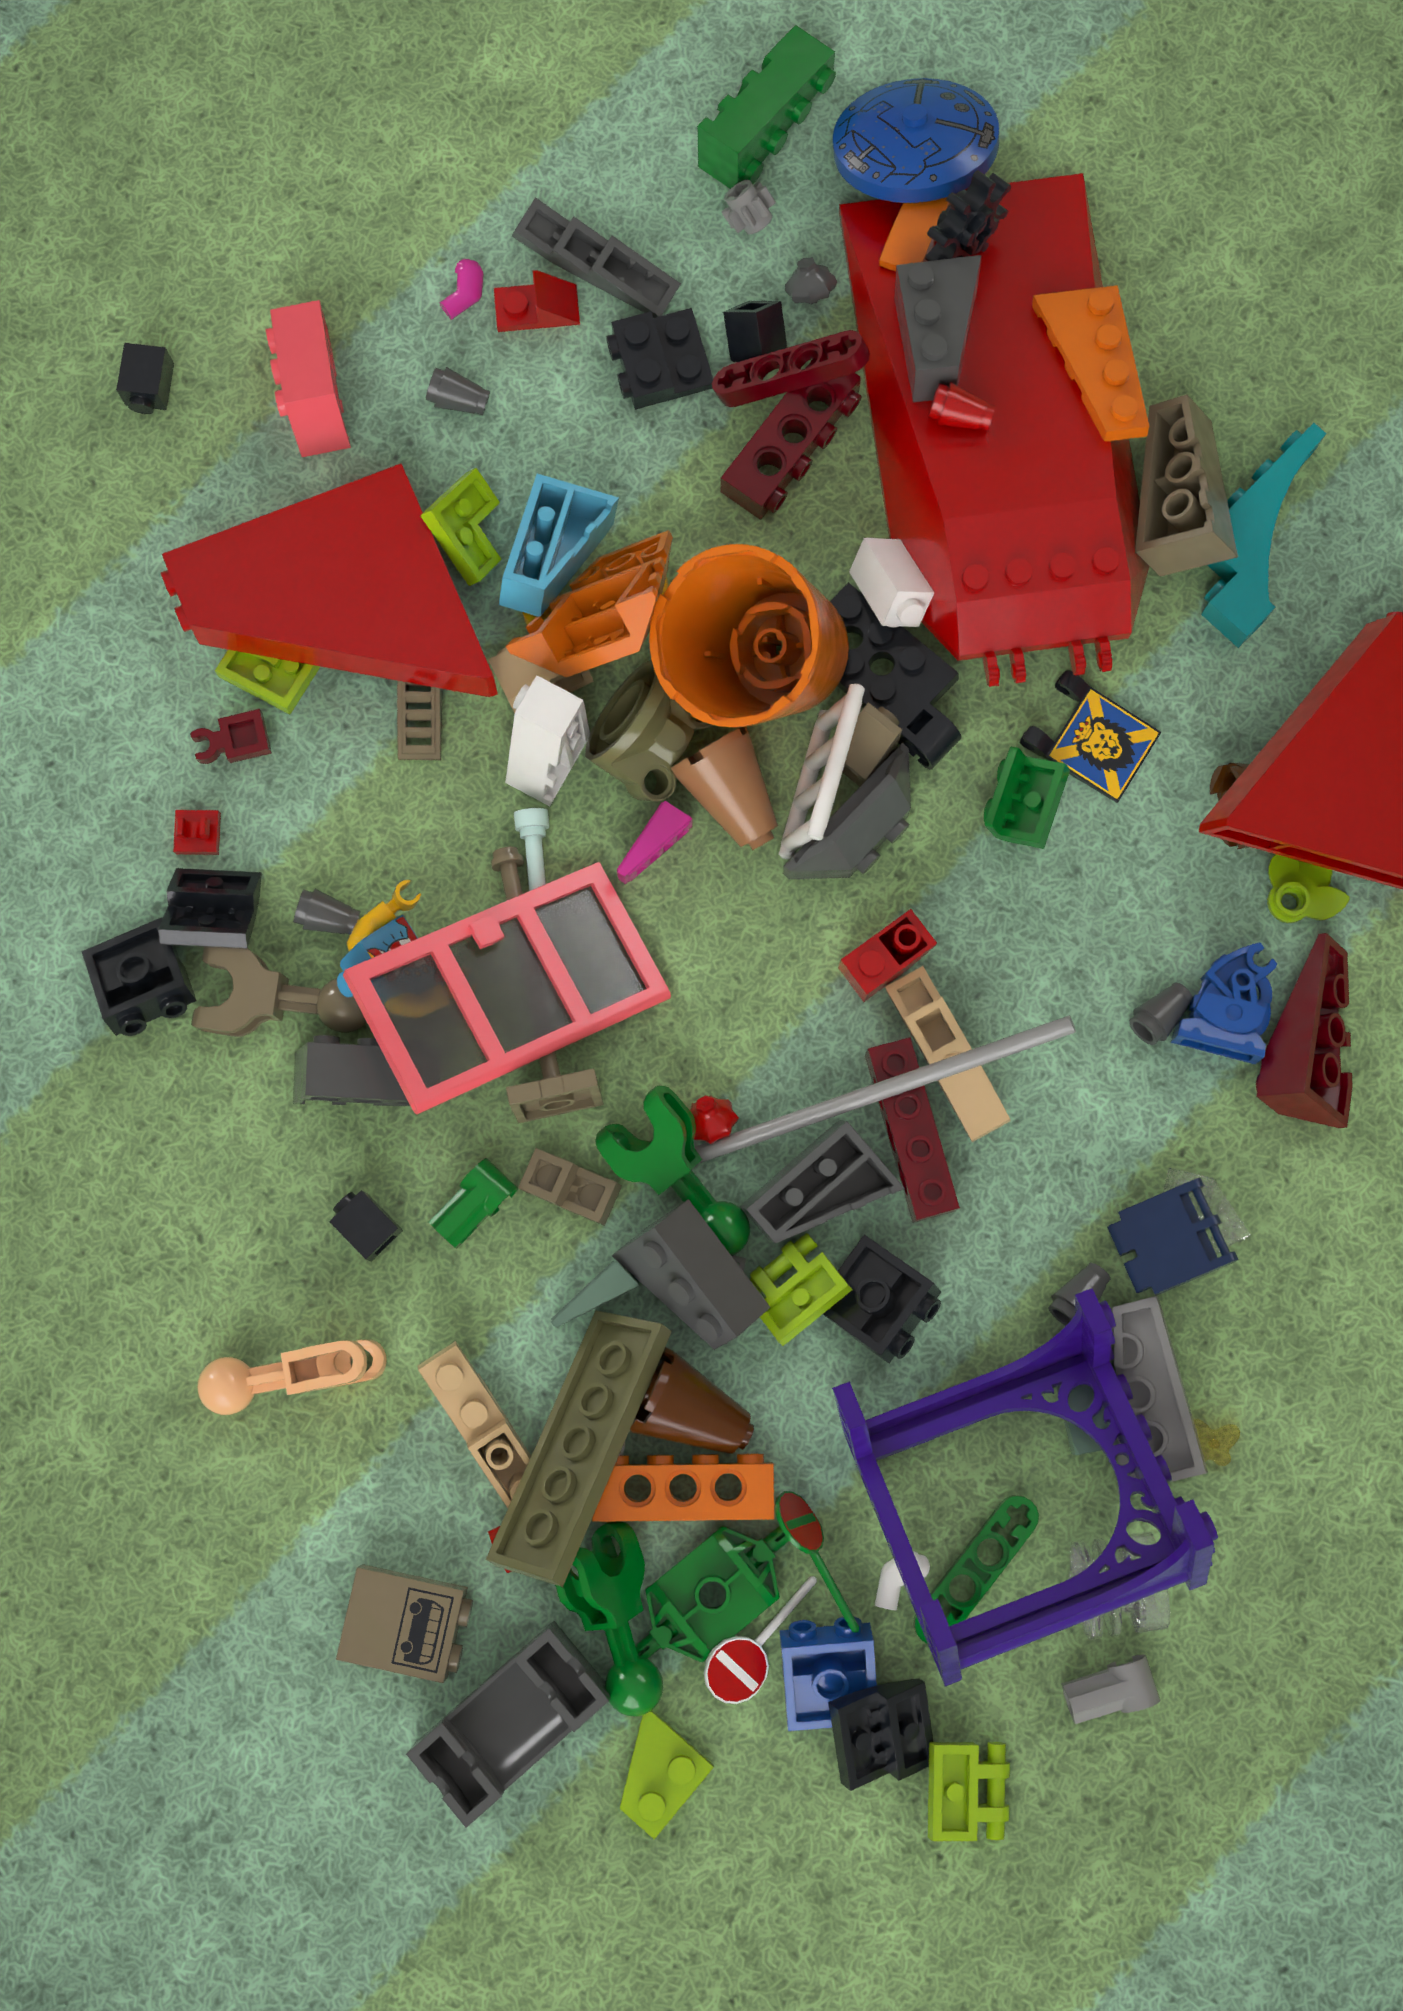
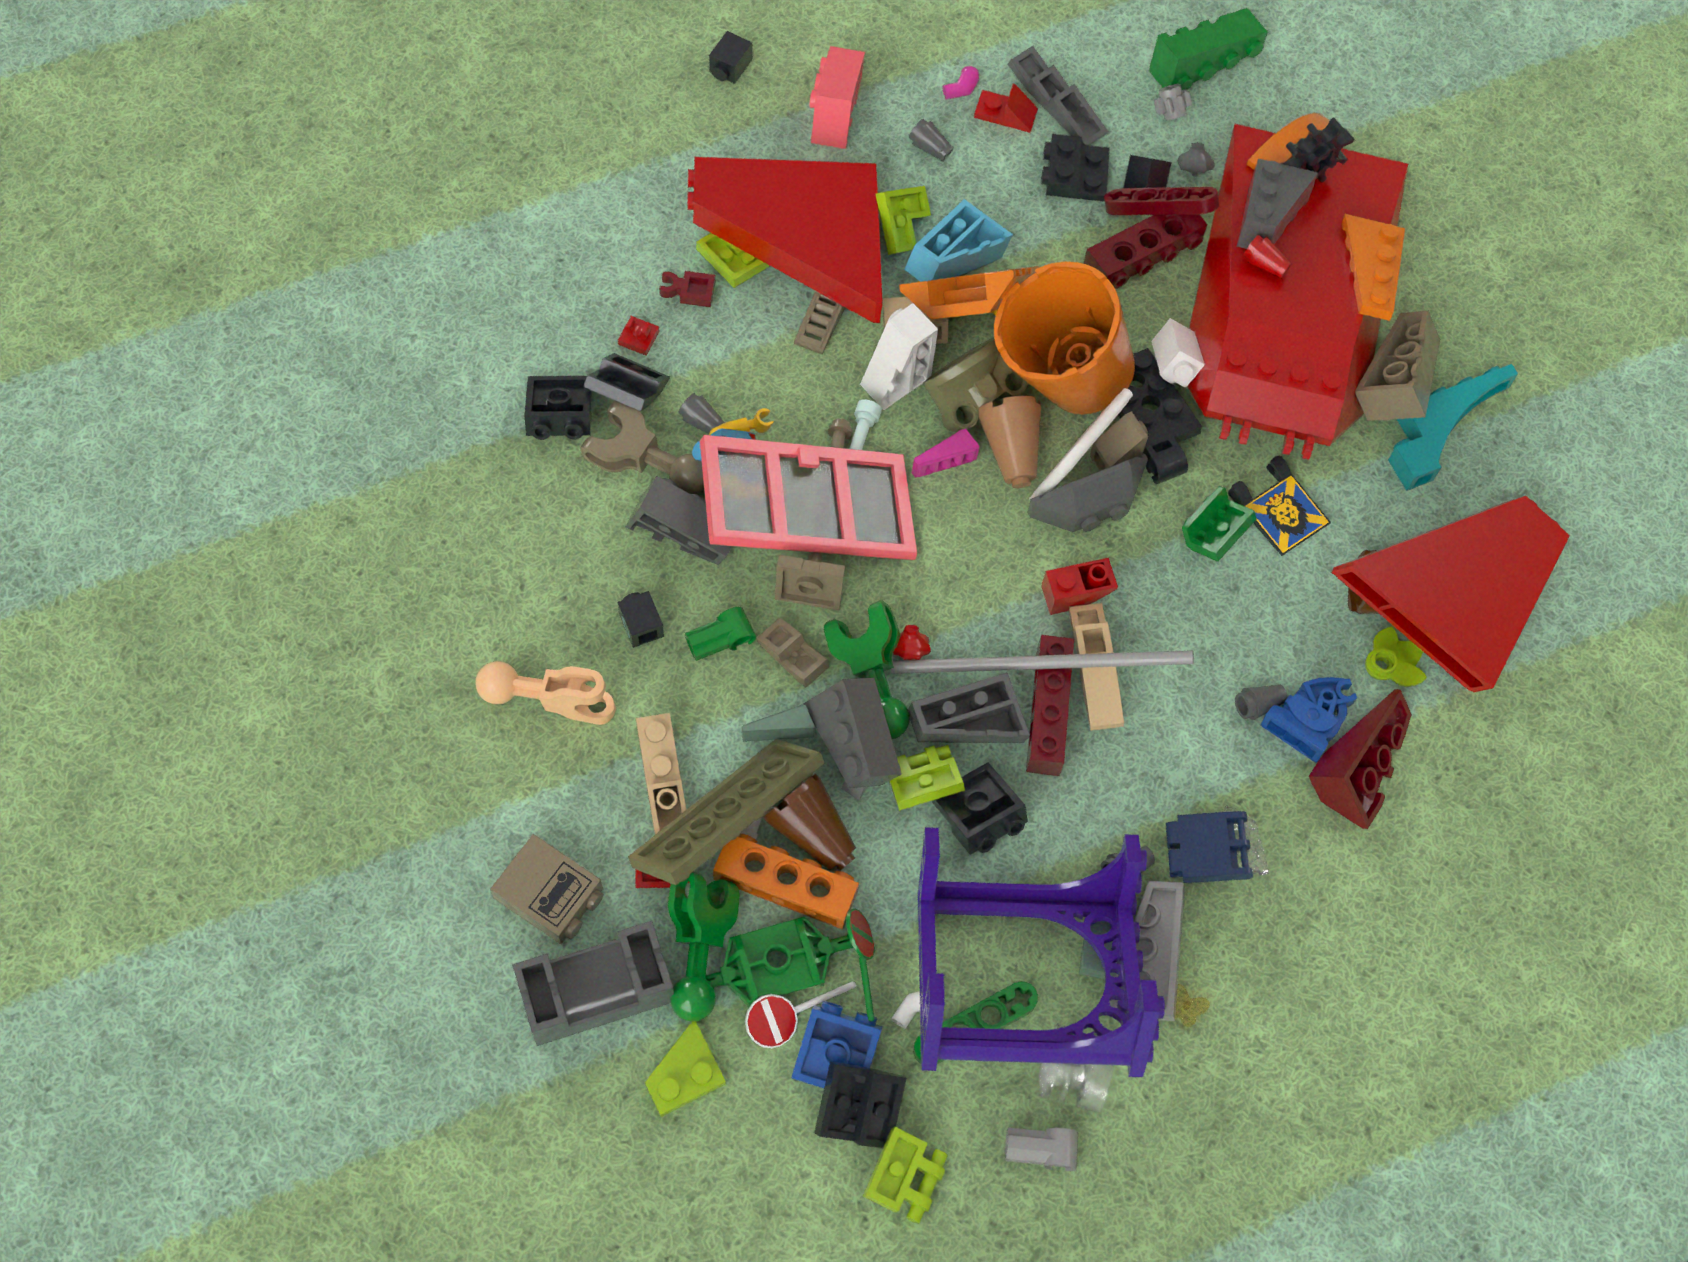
camera: 15 degrees right, 15 degrees down
(915, 140) = (1297, 96): blue dish -> none

